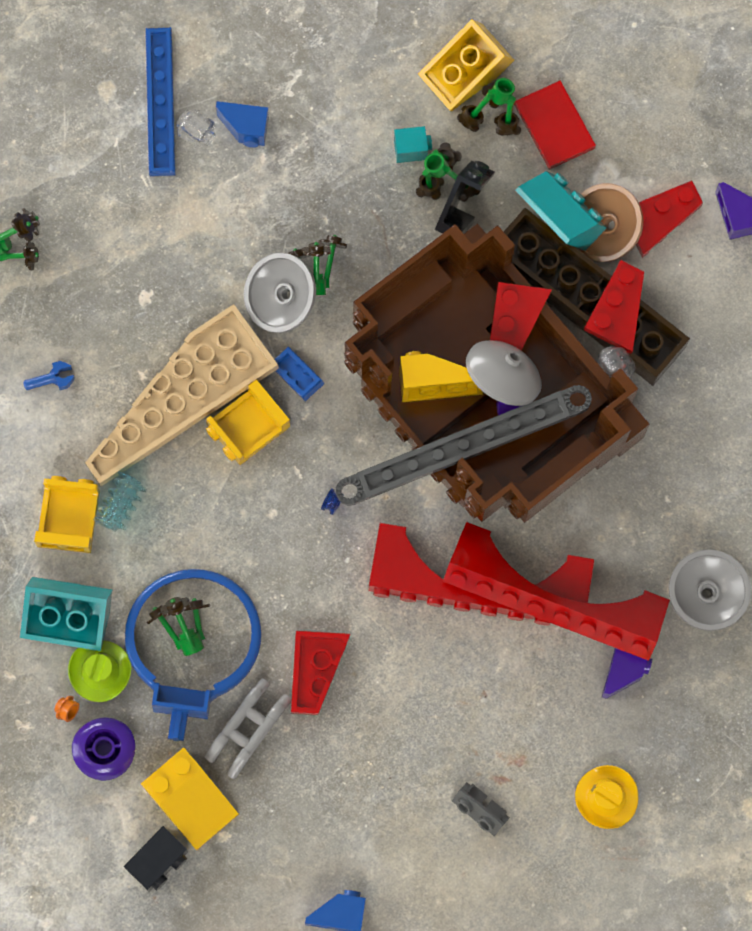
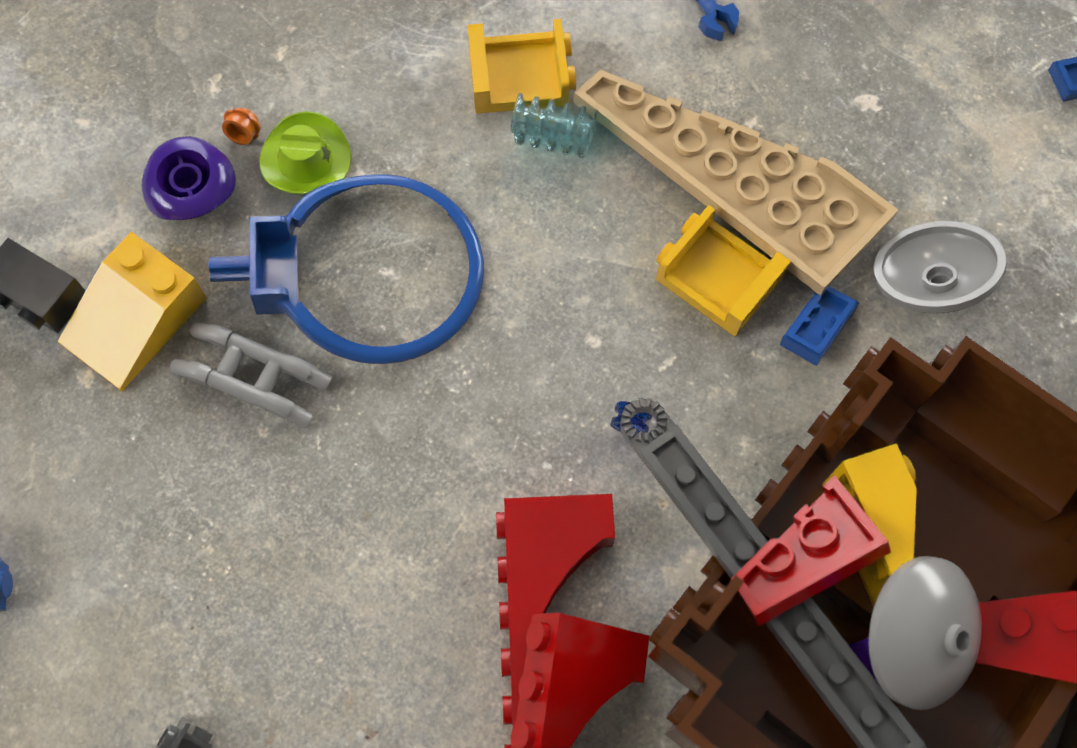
camera: 80 degrees right, 5 degrees down
(65, 613) = (376, 90): teal slope -> none
(189, 640) = (369, 260): green plant -> none
(314, 668) = (358, 449): red wing -> none
(318, 249) = (974, 319): plant -> none
(450, 416) = (814, 553): none -> wing

